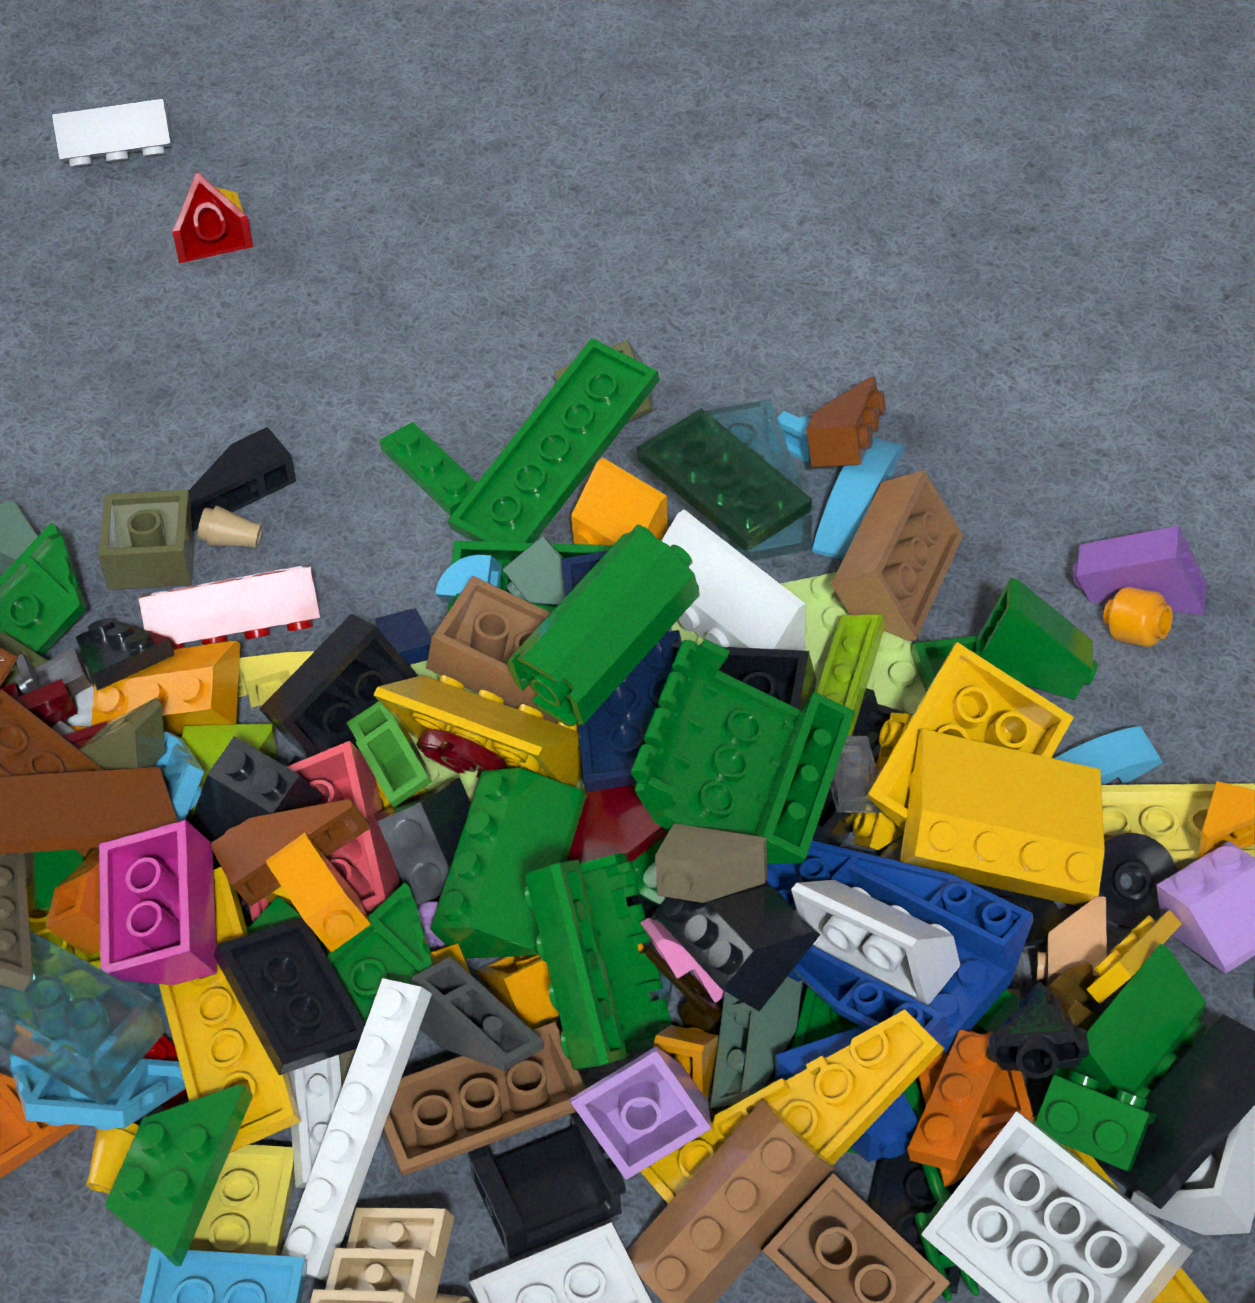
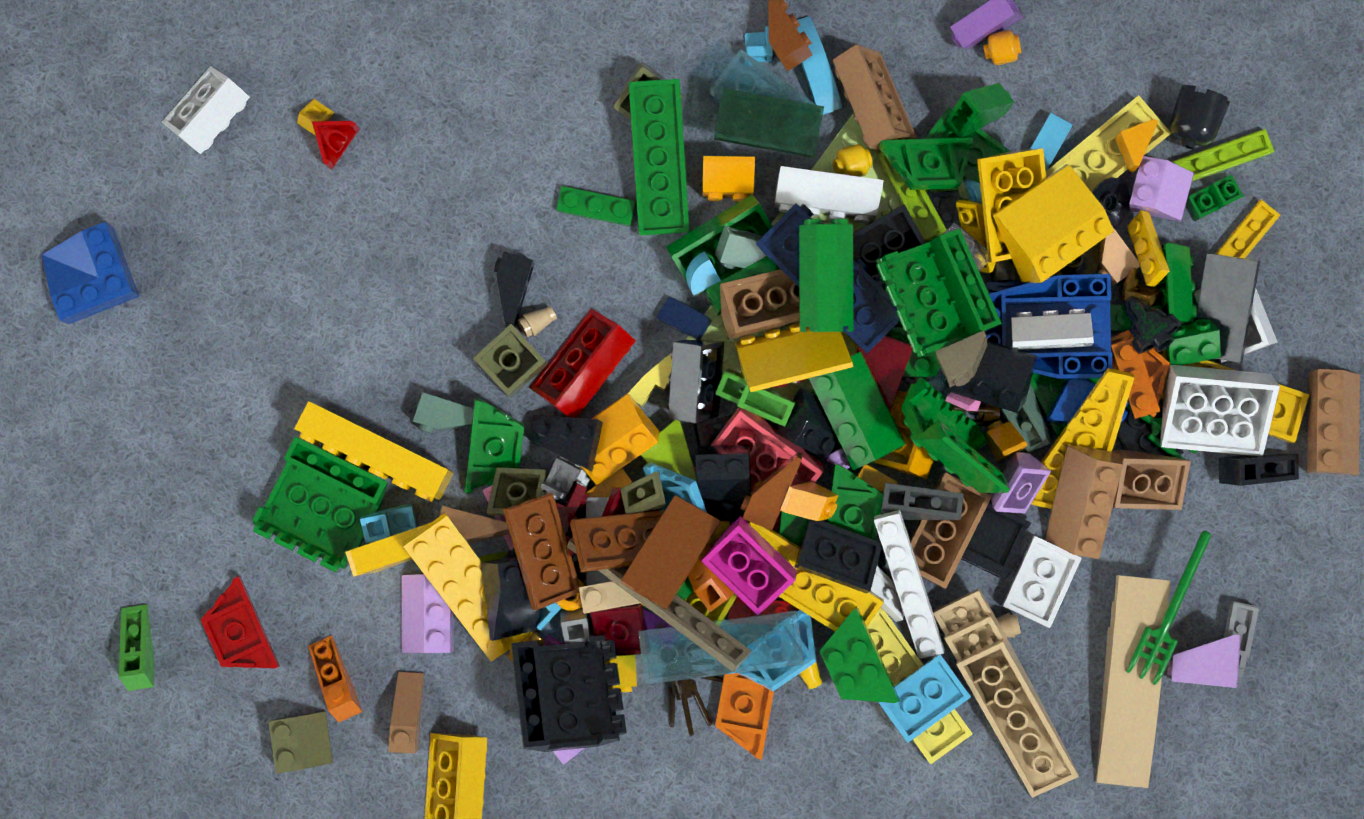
camera: 45 degrees left, 35 degrees up
(808, 589) = (852, 161): none -> yellow head
(889, 643) = (928, 162): none -> green wing

